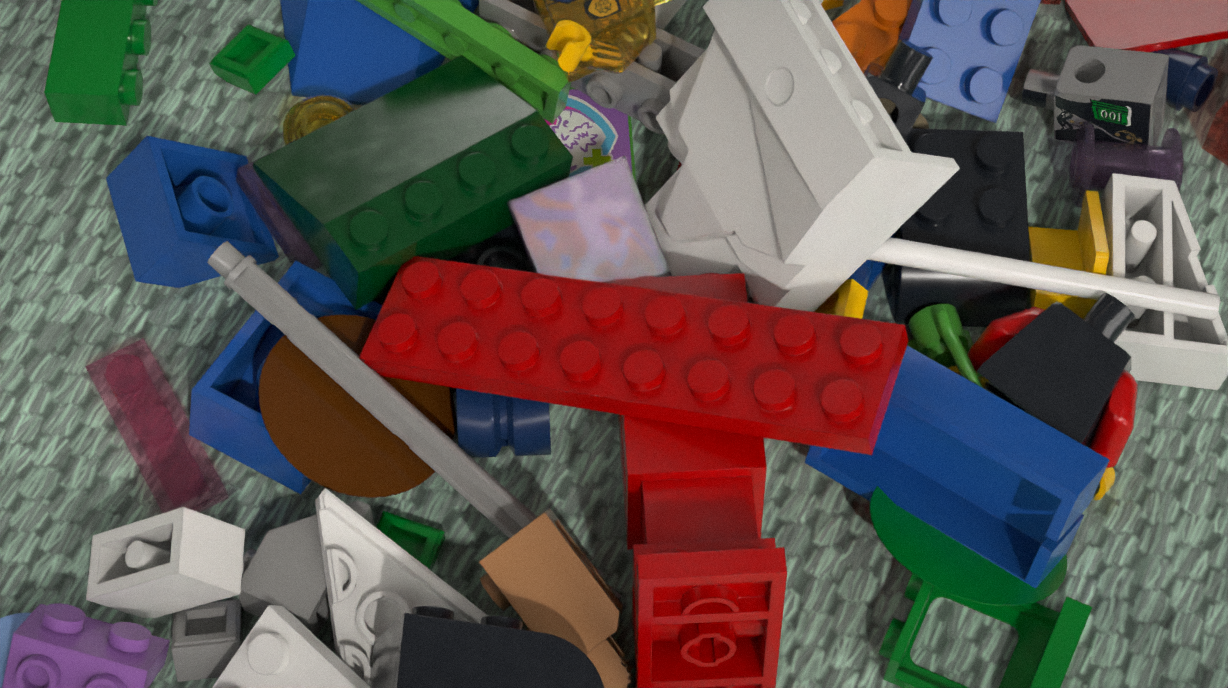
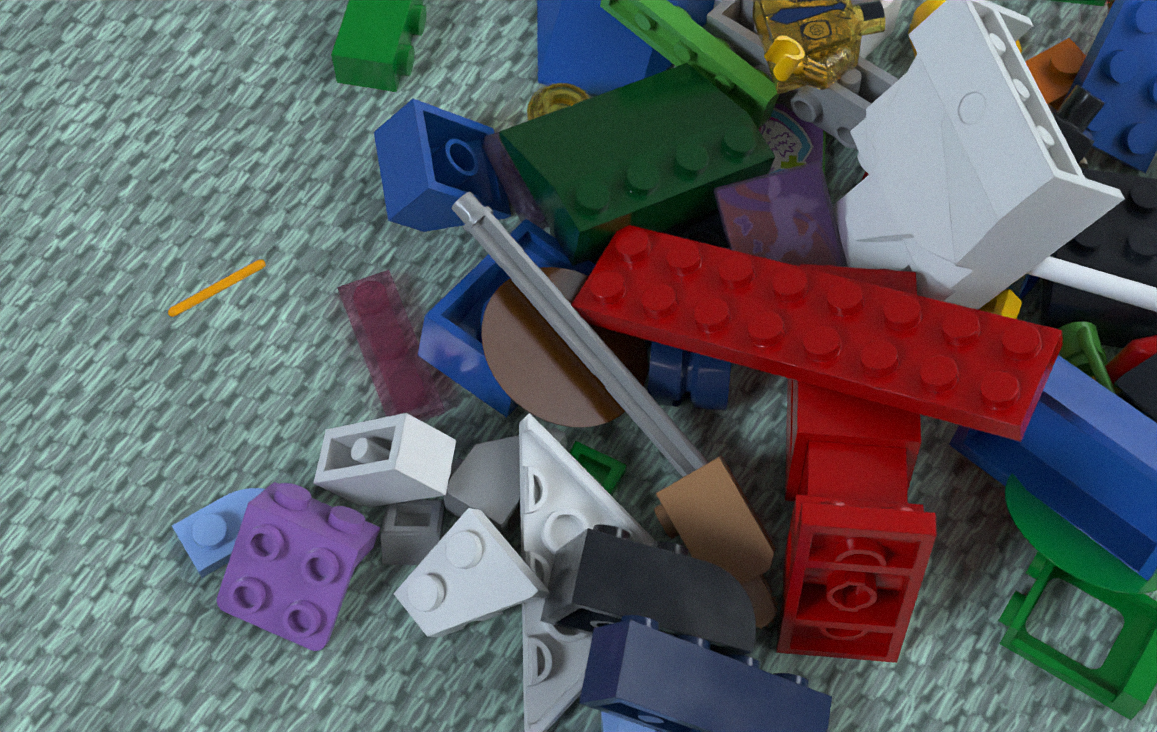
camera: 10 degrees right, 0 degrees up
(252, 59) = (508, 48): green tile -> none

